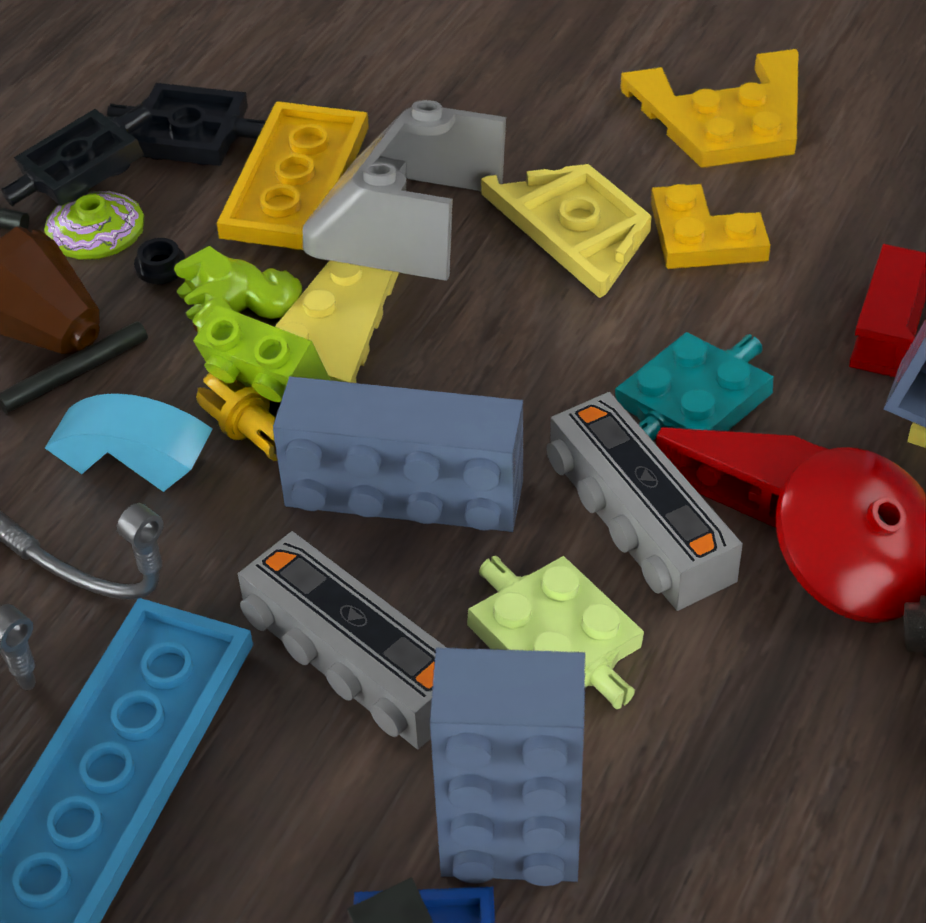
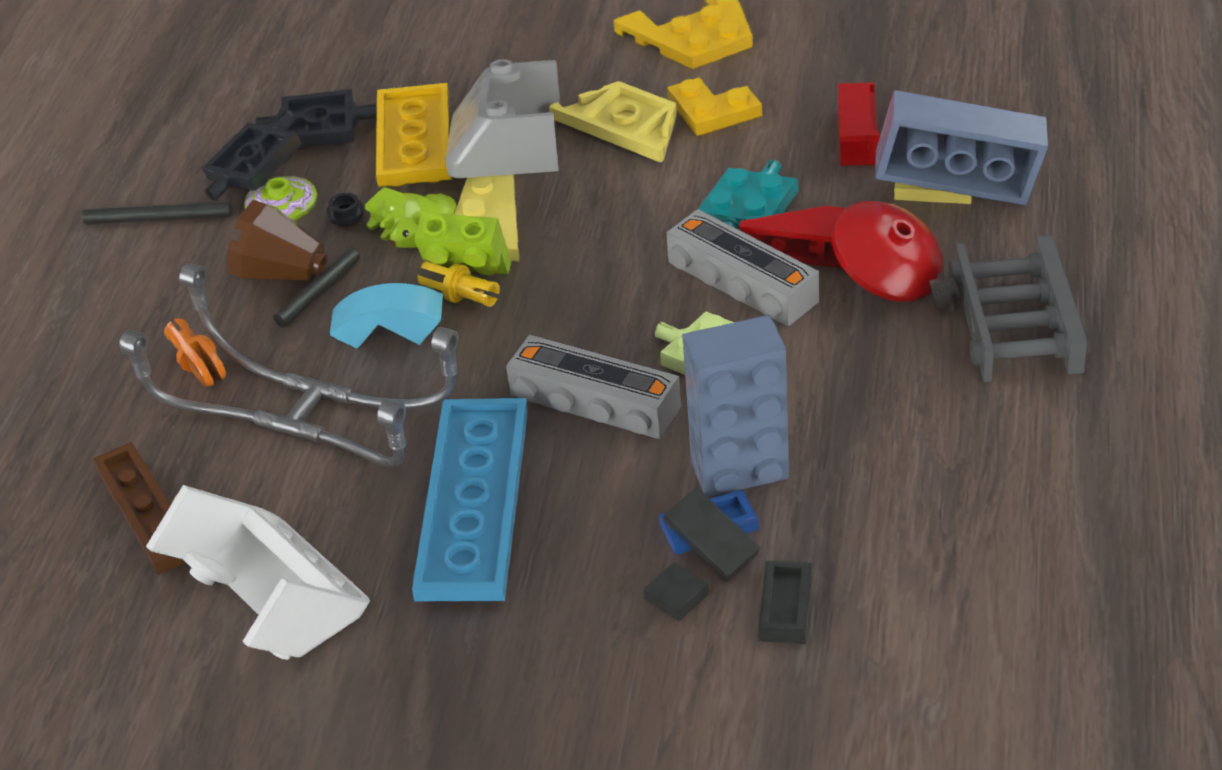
camera: 15 degrees left, 5 degrees down
(400, 453) = (579, 275): sand blue brick -> none

